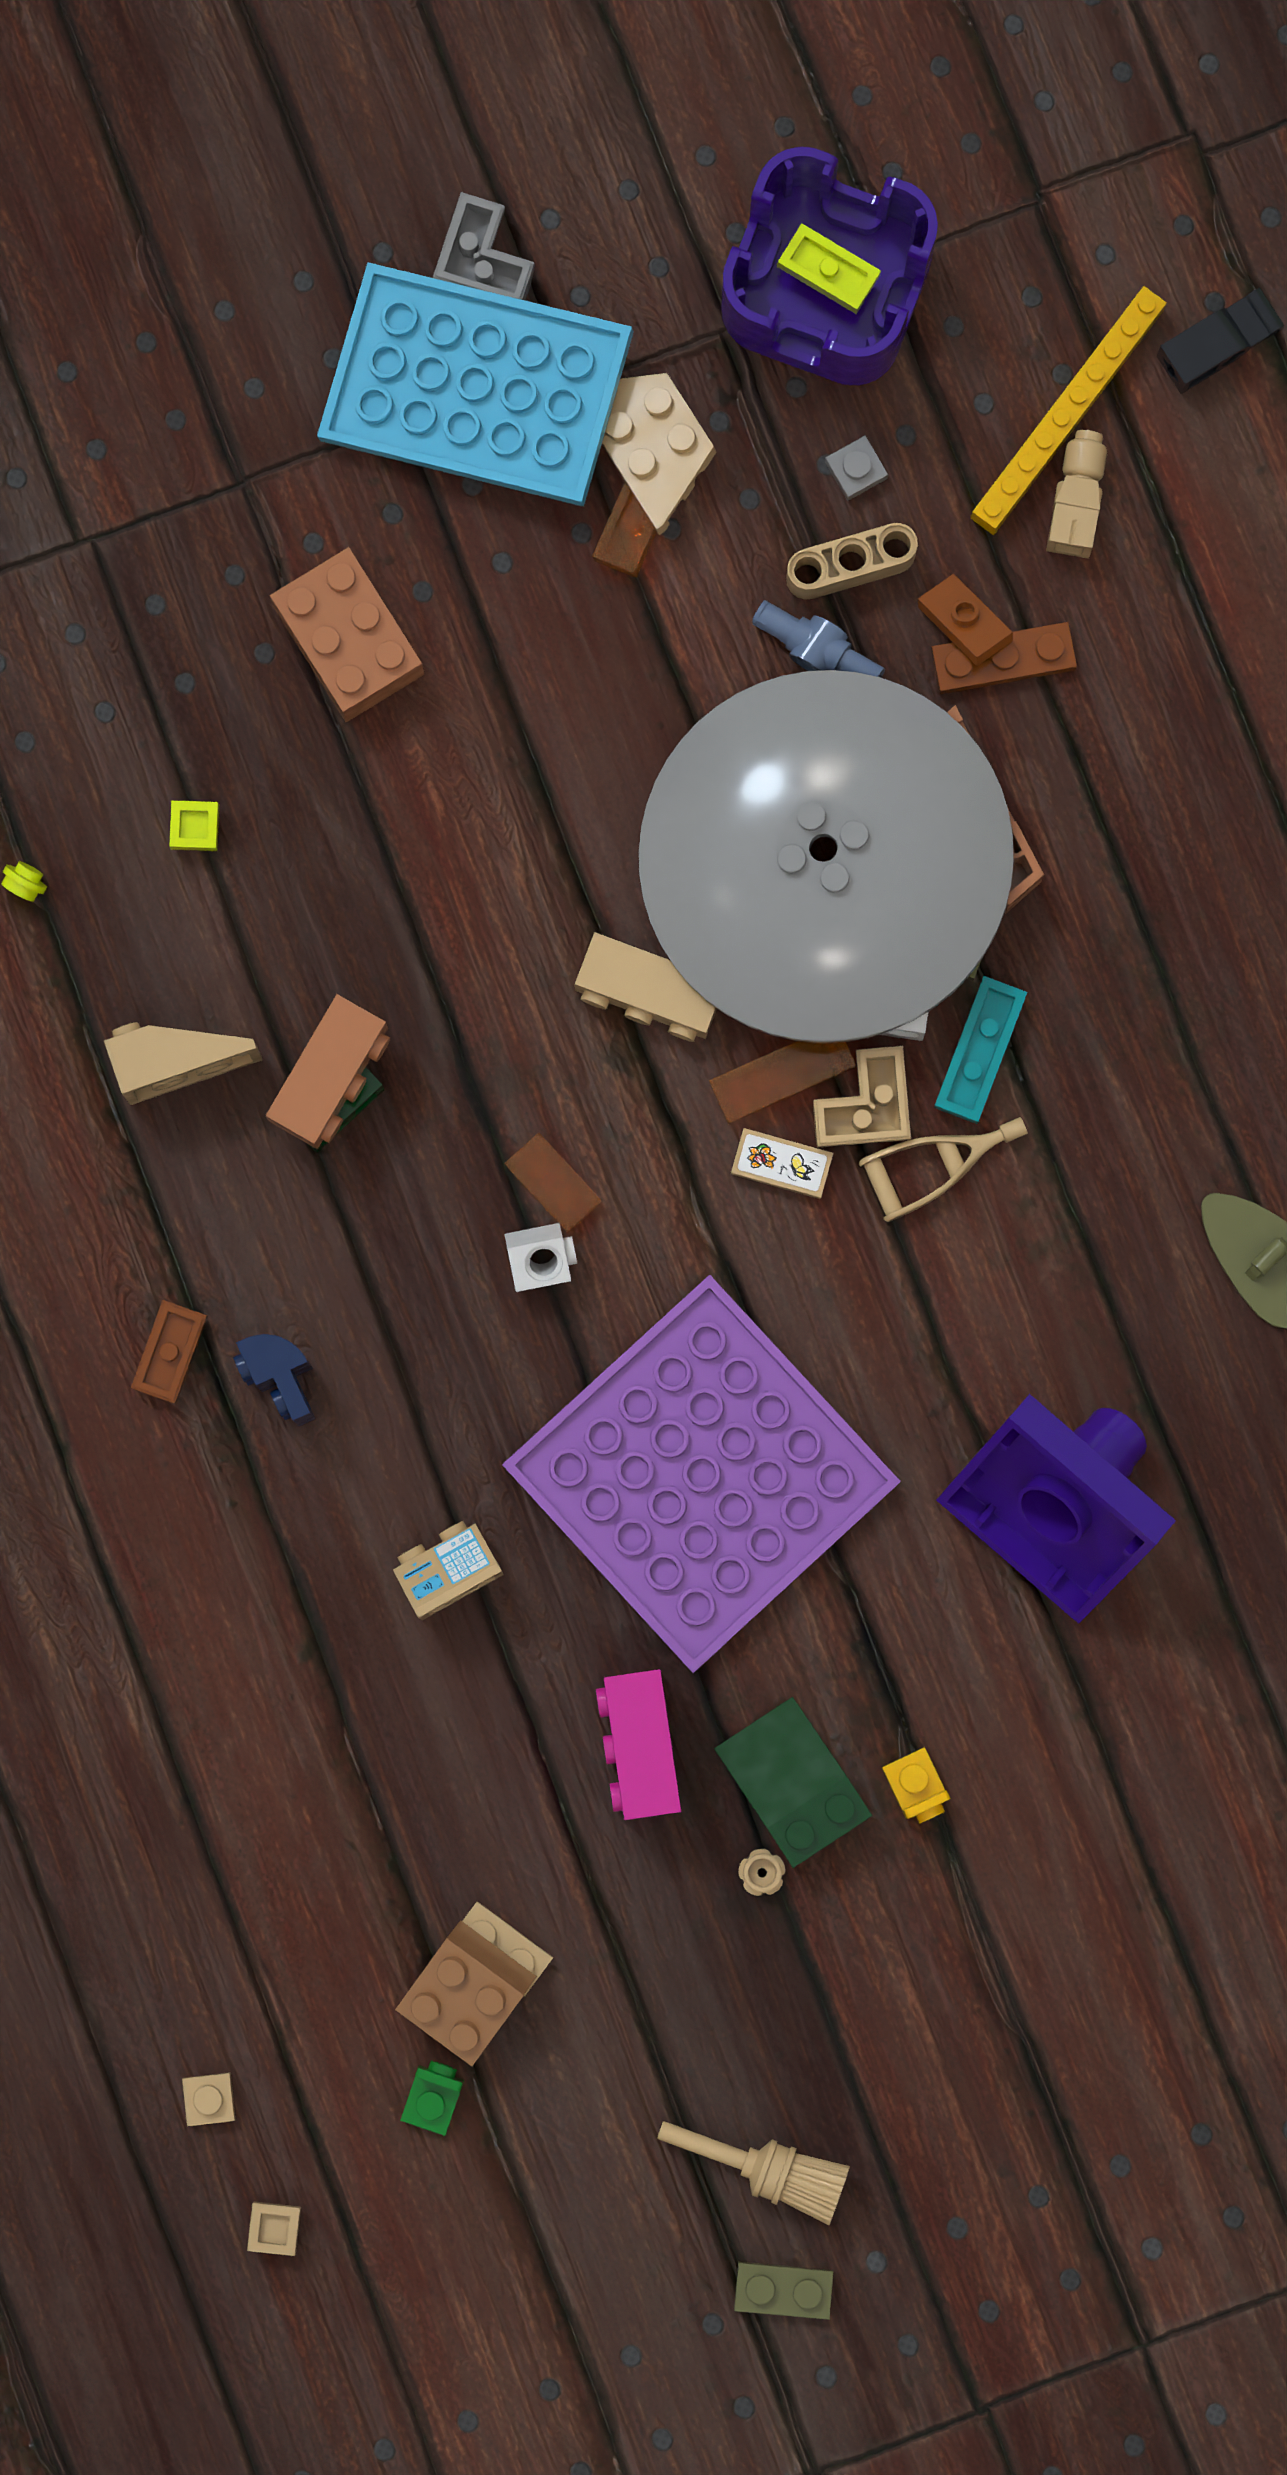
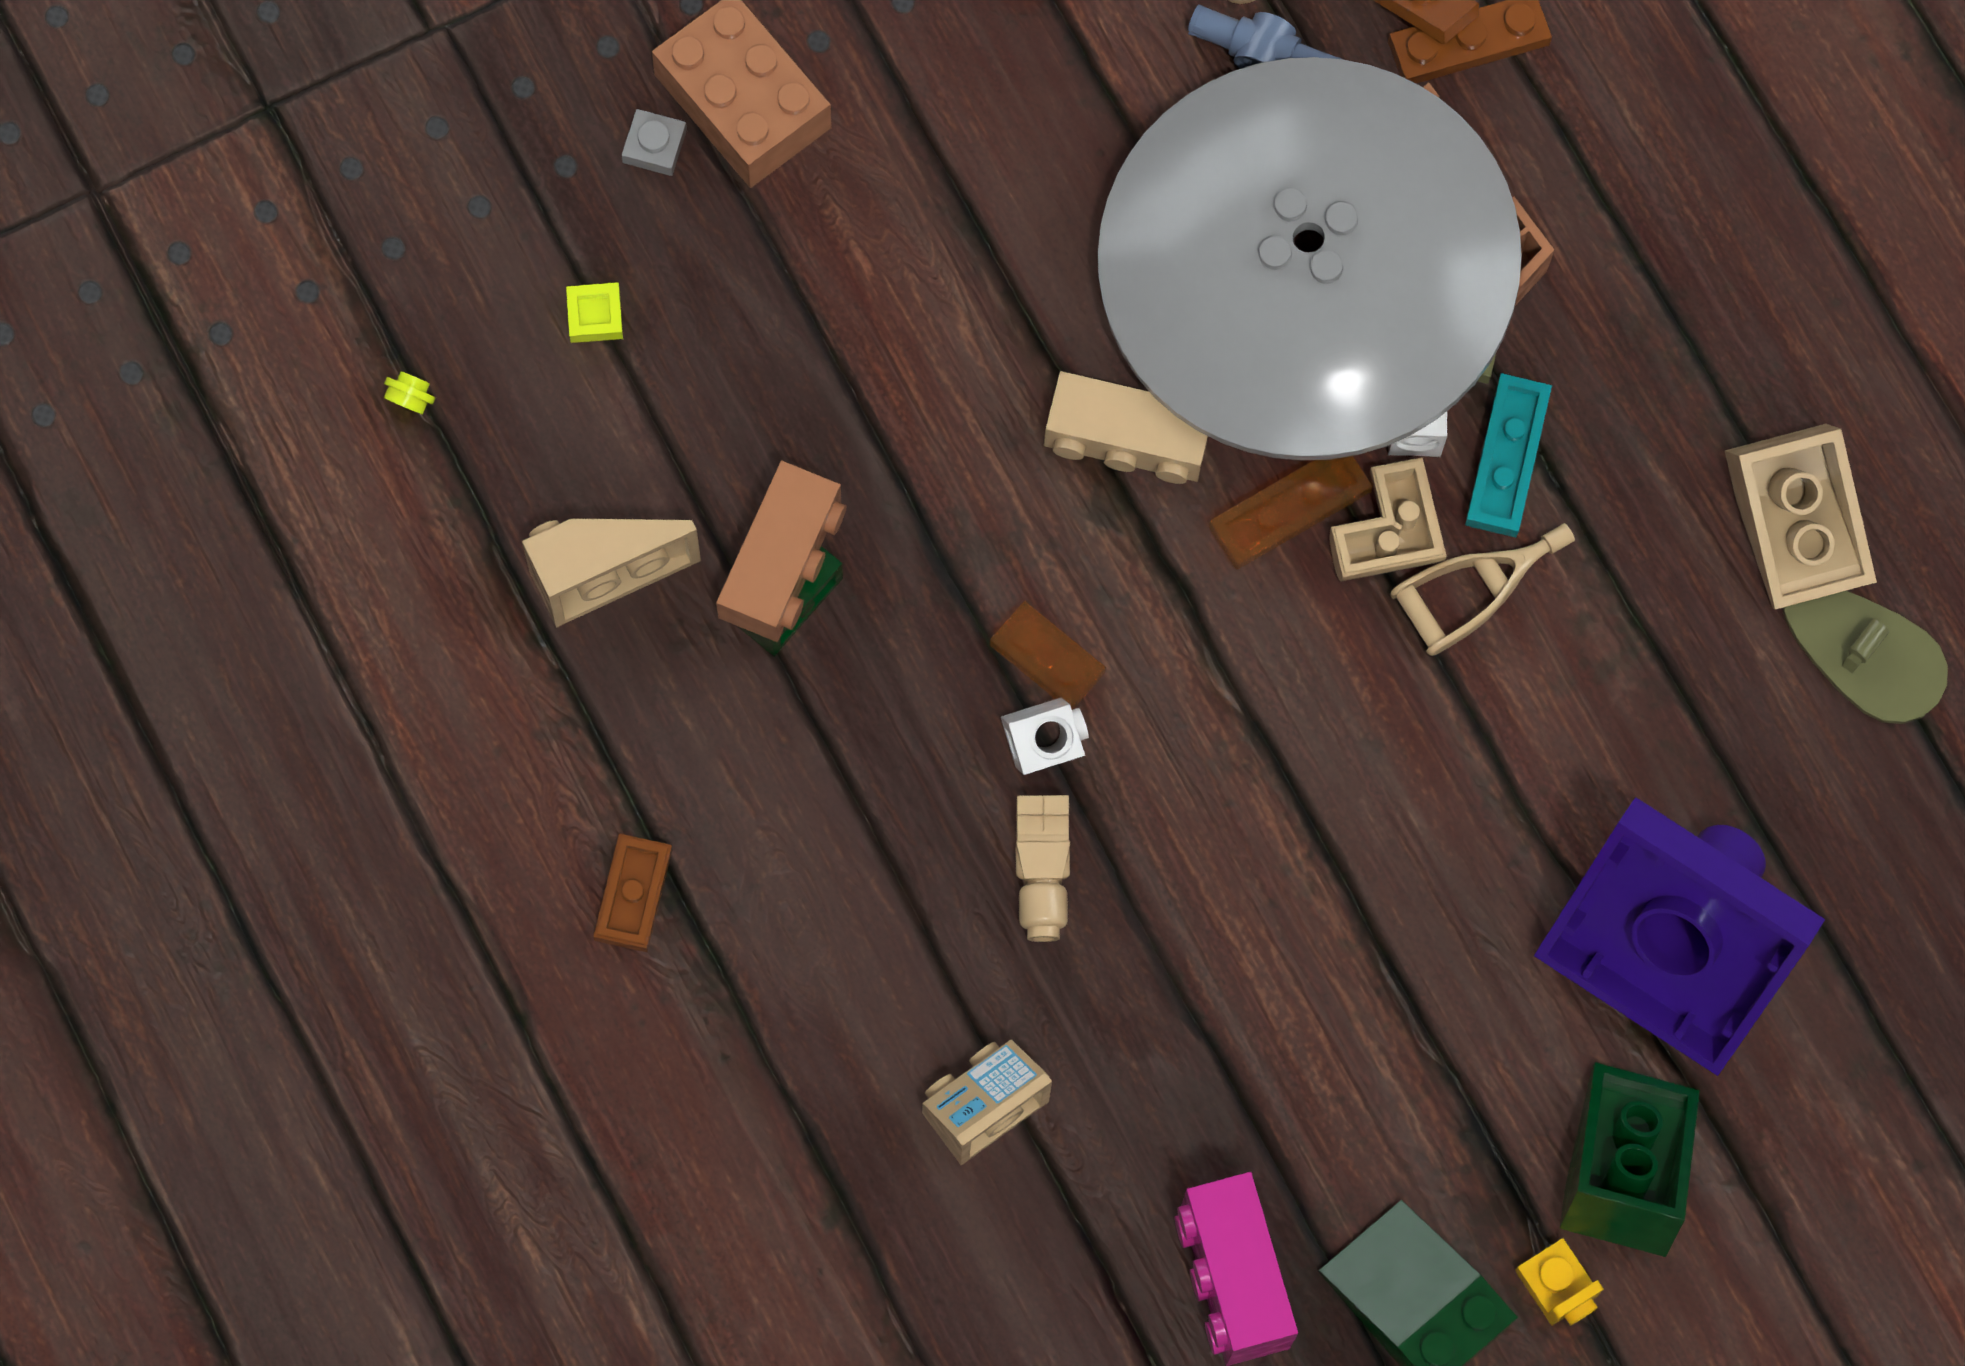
camera: 10 degrees left, 10 degrees down
(265, 671) = (654, 142): none -> light grey plate
(272, 1363) = (760, 886): dark blue brick -> none
(523, 1369) = (1042, 864): none -> tan piece
(701, 1473) = (1261, 959): medium lavender plate -> none
(782, 1163) = (1303, 605): tile -> none
(993, 1687) = (1631, 1160): none -> dark green slope
(1229, 1135) = (1802, 514): none -> tan slope

